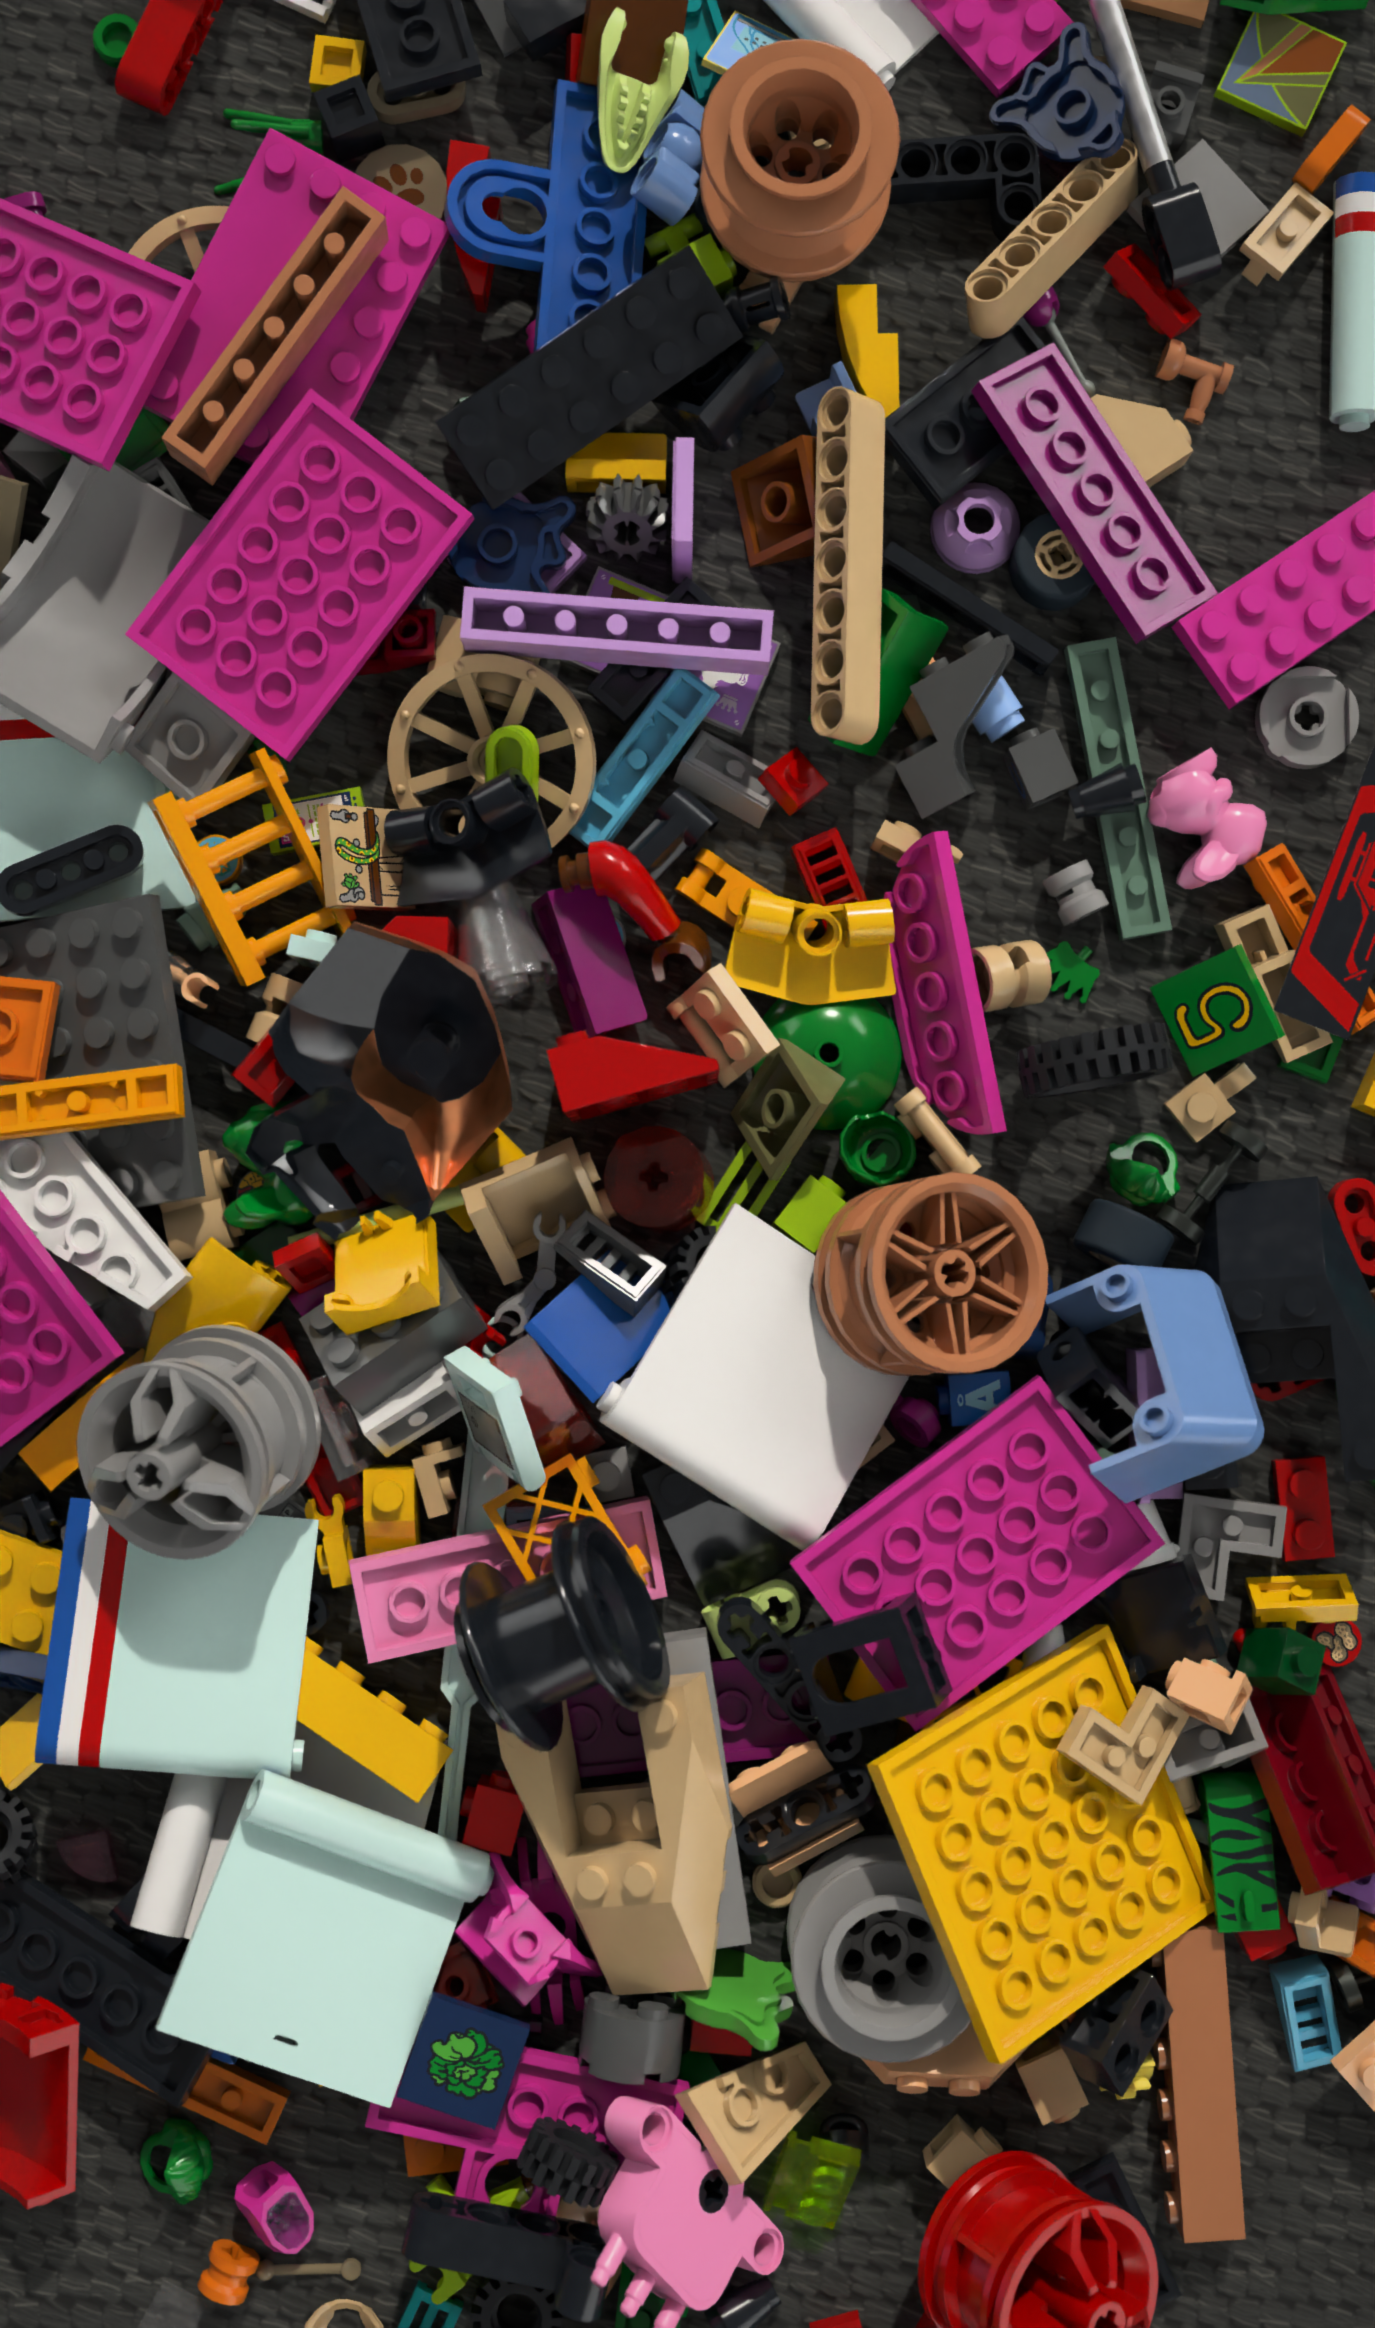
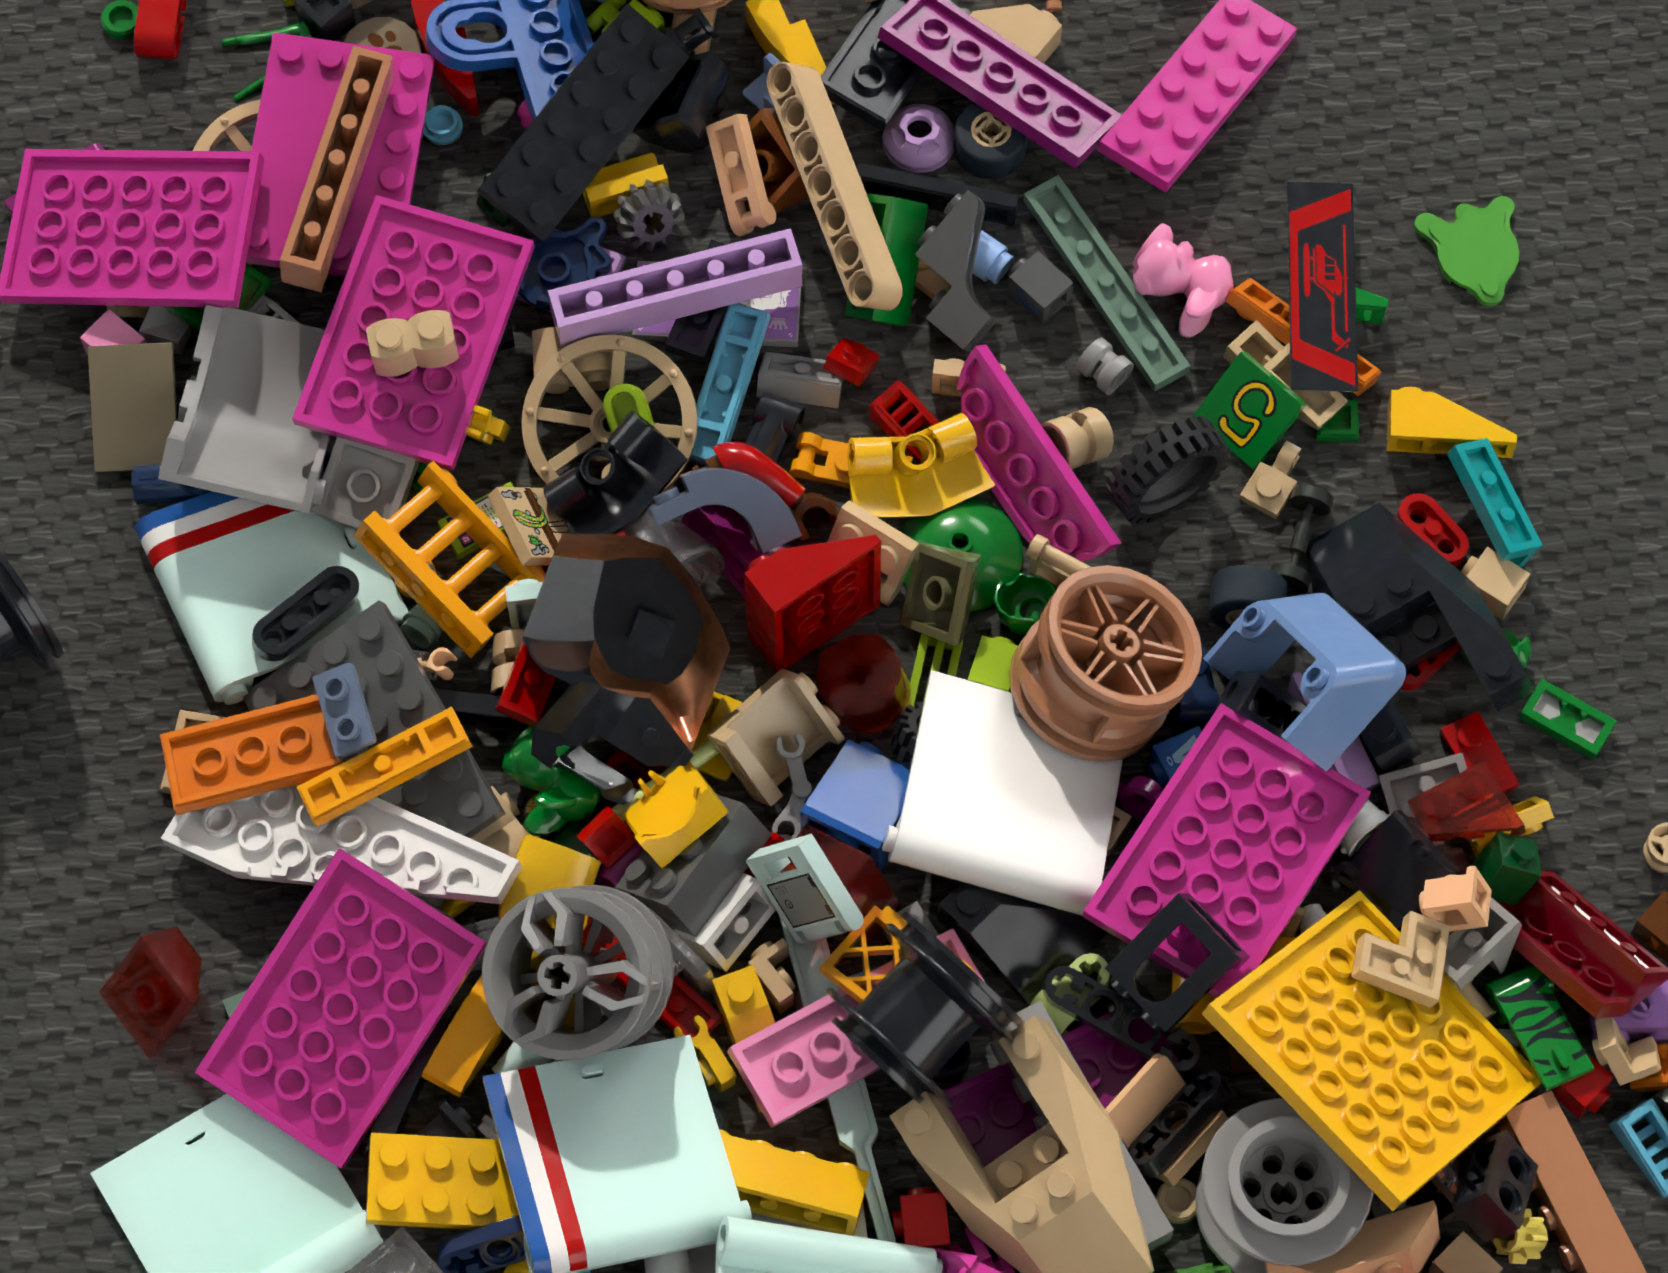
camera: 20 degrees left, 20 degrees down
(56, 1023) = (345, 711): none -> sand blue bracket
(274, 598) = (421, 341): none -> tan brick
(351, 713) = (486, 427): none -> yellow plate
(406, 644) = (511, 363): dark red slope -> none
(438, 312) = (442, 125): none -> medium azure plate
(589, 913) = (755, 501): none -> sand blue arch
(600, 1274) = (865, 752): dark grey slope -> none
(682, 508) = (692, 189): lavender tile -> none
(750, 505) = (739, 174): none -> light nougat plate
(1072, 969) = (1127, 424): green piece -> none
(1108, 793) = (1099, 281): black cone -> none
(1139, 1181) = (1243, 548): green piece -> none
(1266, 1579) = (1465, 807): none -> clear red wing
(1326, 697) = (1238, 165): light grey plate -> none
(1341, 1640) = (1552, 848): tile -> none

